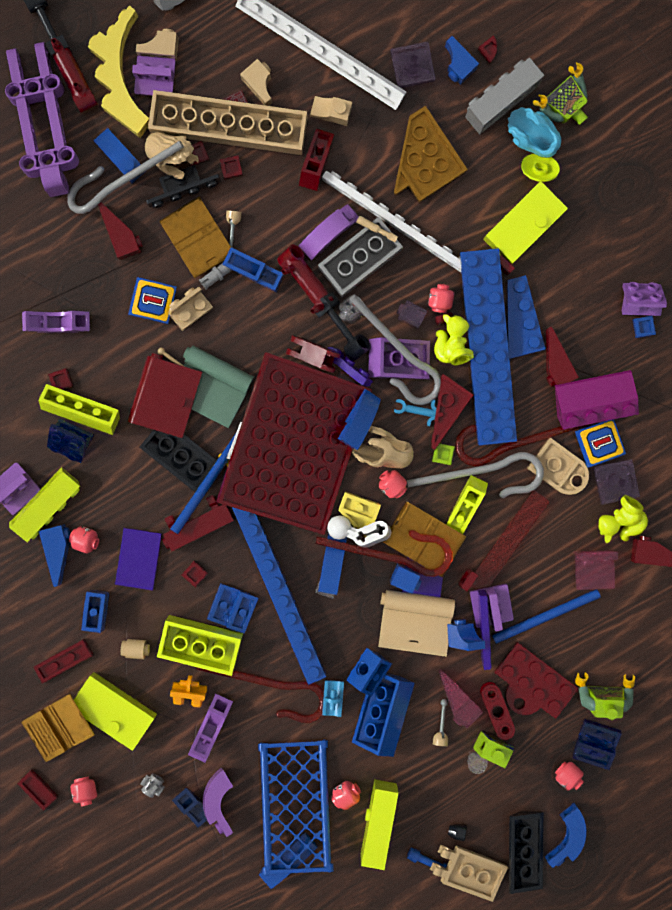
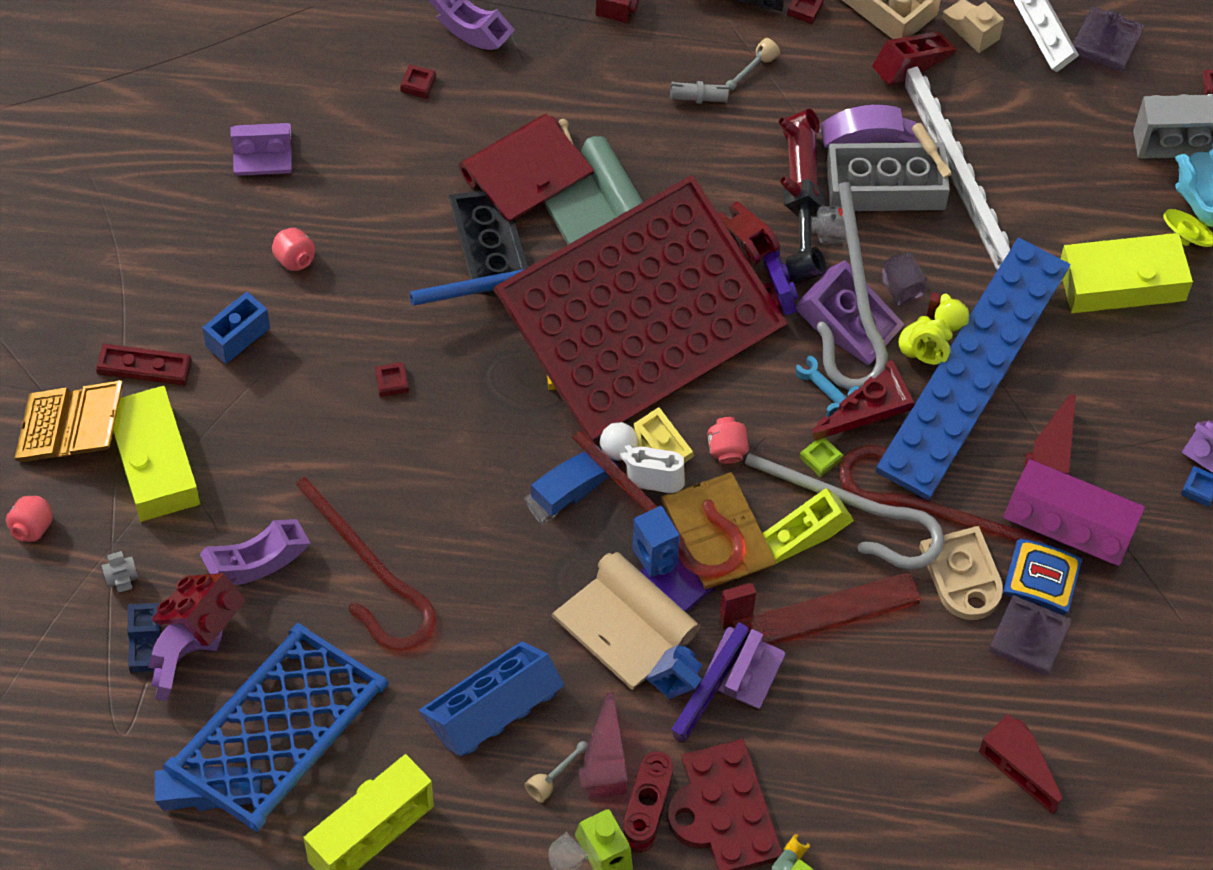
camera: 30 degrees right, 30 degrees down
(44, 504) = (282, 182): neon yellow brick -> none
(56, 547) = (249, 239): blue slope -> none
(69, 440) = (370, 138): clear blue bracket -> none
(79, 409) = (414, 114): neon yellow brick -> none
(135, 649) = (243, 405): tan brick -> none
(138, 558) = (338, 317): dark purple tile -> none
(152, 300) = (598, 70): slope -> none
(189, 308) = (635, 101): tan bracket -> none
(190, 690) = (252, 492): light orange hips -> none
(196, 237) = (705, 44): pearl gold piece -> none
(199, 526) = (444, 326): dark red brick -> none
(199, 645) = (328, 452): neon yellow brick -> none
(210, 782) = (202, 605): none -> dark red bracket
(232, 608) = (404, 446): blue slope -> none
(253, 269) = (746, 113): blue slope -> none
(281, 595) = (478, 468): blue brick -> none
(333, 698) = (441, 629): dark azure hips -> none
(346, 795) = (355, 762): coral head -> none
(360, 420) = (744, 337): blue slope -> none
(369, 672) = (515, 630): blue brick -> none
(385, 451) = (753, 398): tan hair -> none
(426, 158) = (1050, 136): pearl gold wing -> none
(441, 298) = (956, 281): coral head -> none
(462, 62) = (1169, 71): blue arch -> none
(506, 267) = (1064, 301): dark red tile -> none
(523, 326) = (1040, 379): blue wing -> none
(546, 616) = (808, 736): blue piece -> none
(595, 569) = (922, 717): clear pink bracket -> none
(629, 516) = (1016, 678): neon yellow animal -> none

